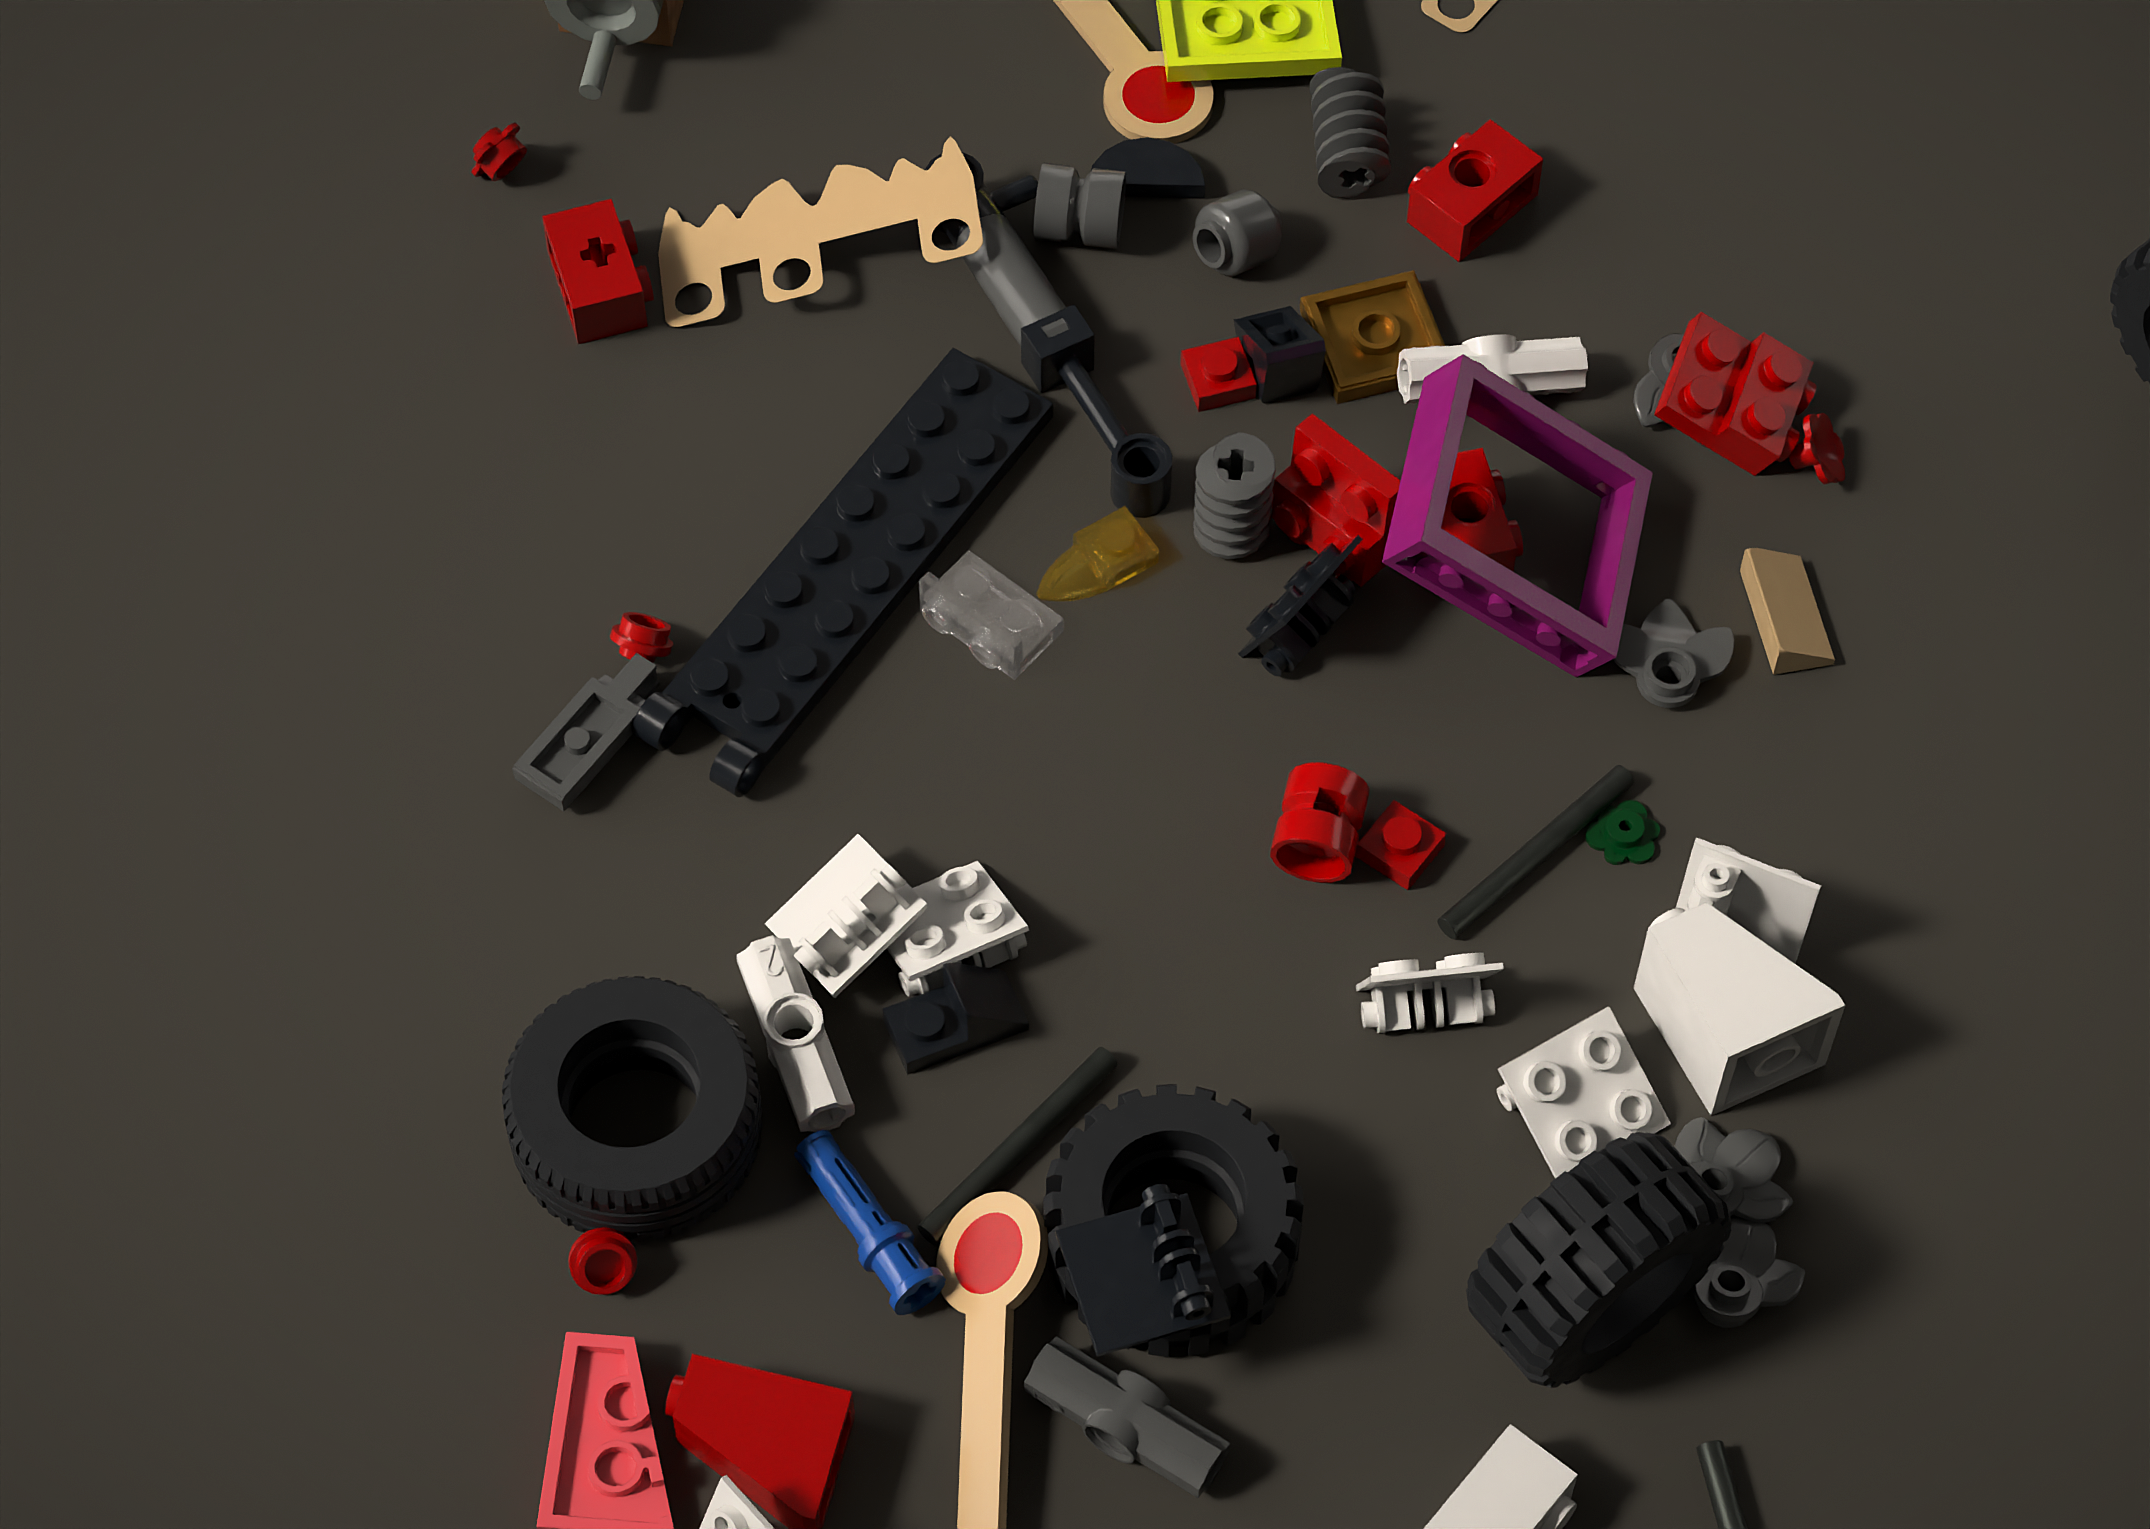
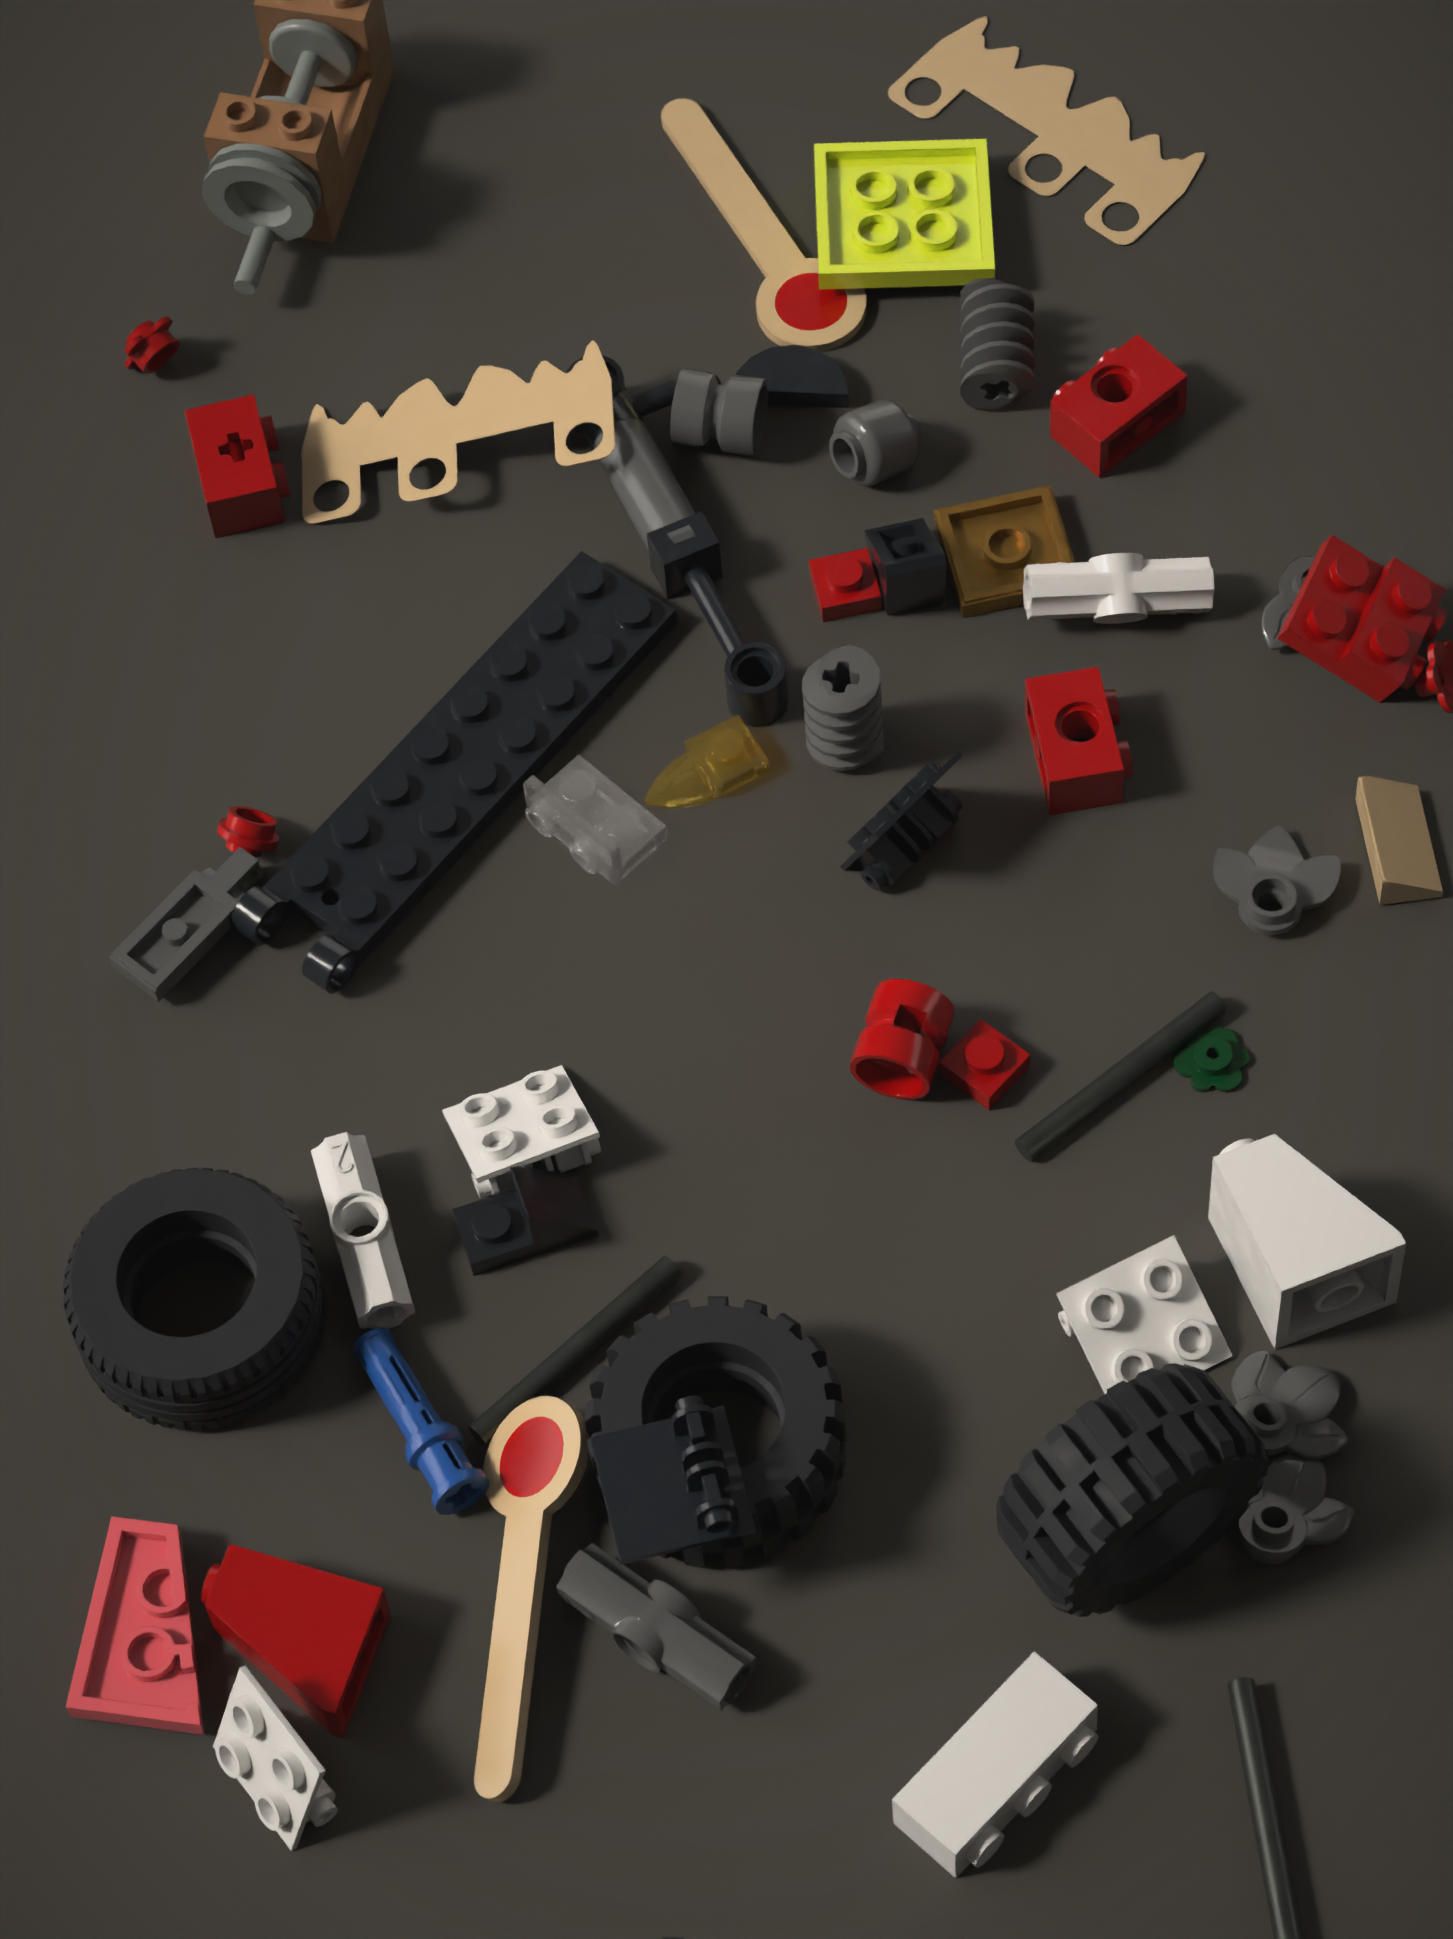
camera: 10 degrees right, 0 degrees up
(602, 1261) = (155, 1448): red plate -> none
(847, 915) = (423, 1115): white hinge -> none
(1333, 497) = (947, 710): red plate -> none
(1456, 974) = (1024, 1195): white hinge -> none
(1478, 583) = (1083, 807): magenta window -> none
(1756, 896) = (1333, 1134): white hinge -> none

